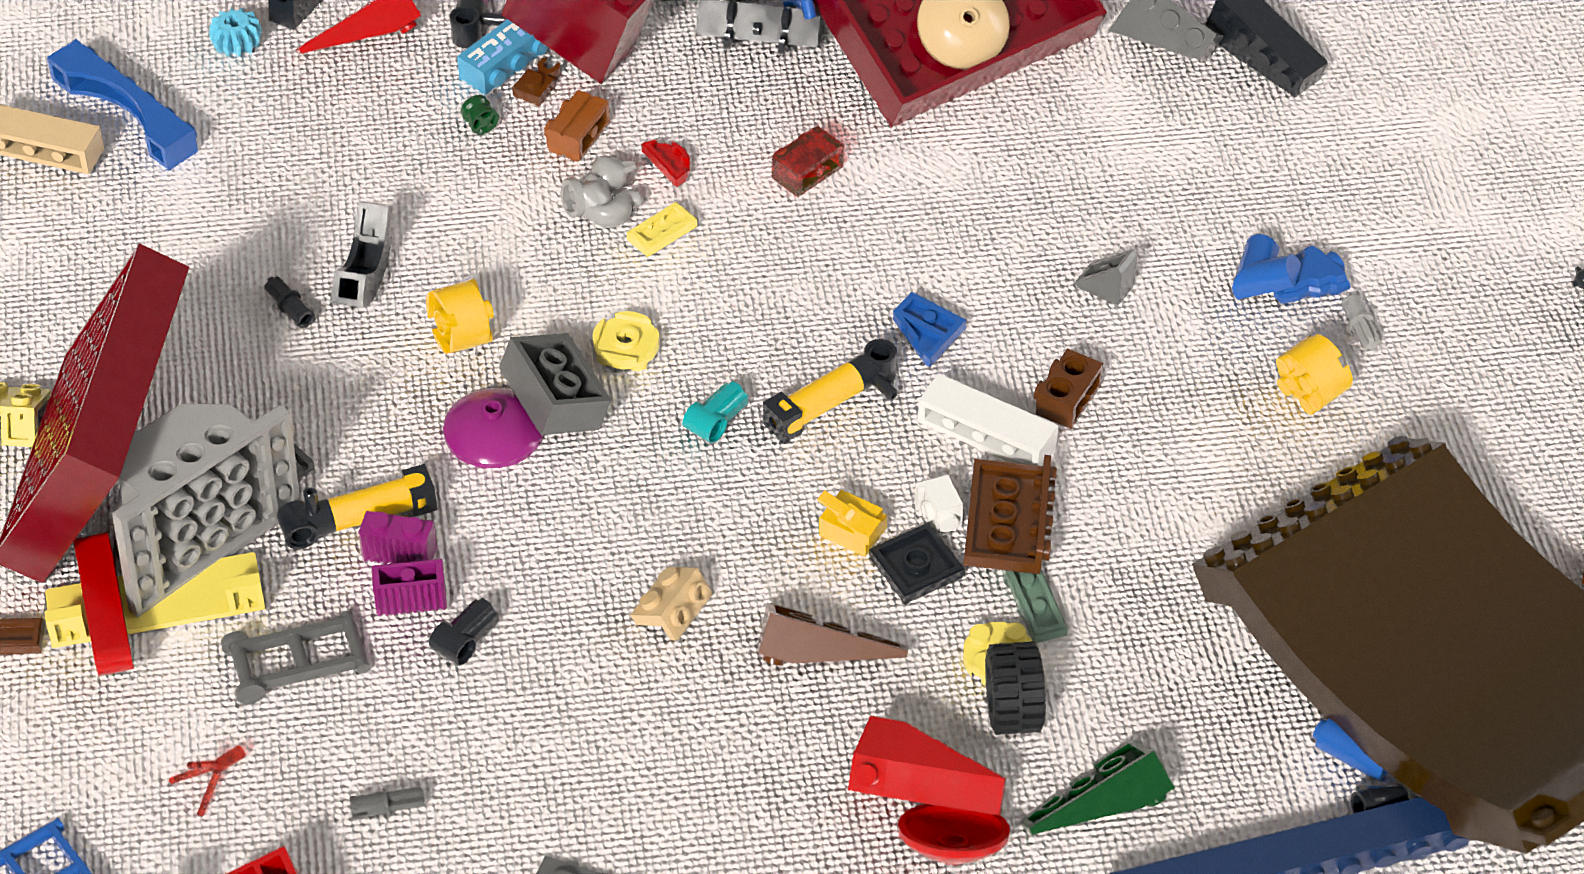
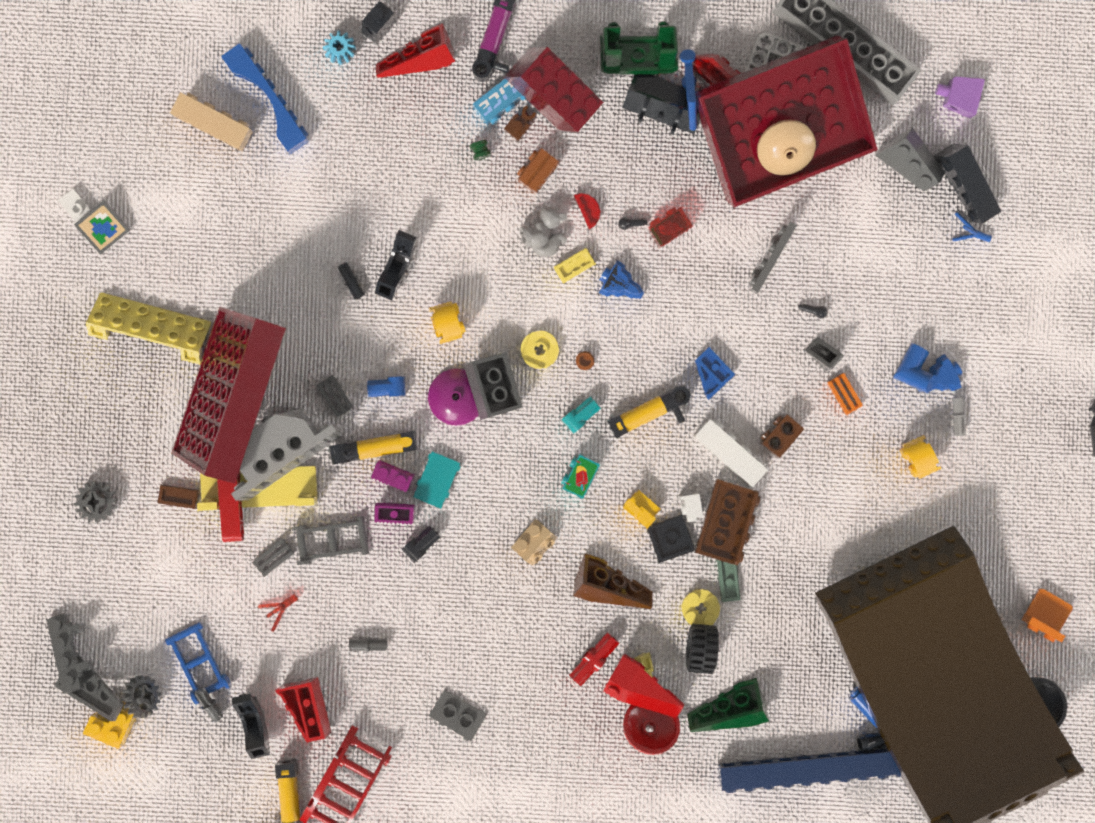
camera: 10 degrees right, 40 degrees up
(187, 695) = (261, 567): none -> dark grey tile
(379, 423) = (391, 386): none -> blue piece
(478, 539) = (436, 480): none -> teal piece
(706, 344) = (584, 360): none -> dark orange plate
(733, 492) = (580, 476): none -> brick
(734, 169) = (626, 223): none -> black piece
(740, 238) = (619, 282): none -> blue rock
(820, 755) = (594, 659): none -> red piece
(984, 158) = (766, 265): none -> dark grey hinge
(1083, 229) = (819, 311): none -> black piece
(1163, 324) = (852, 408): none -> orange tile
(1292, 98) = (975, 233): none -> blue plant

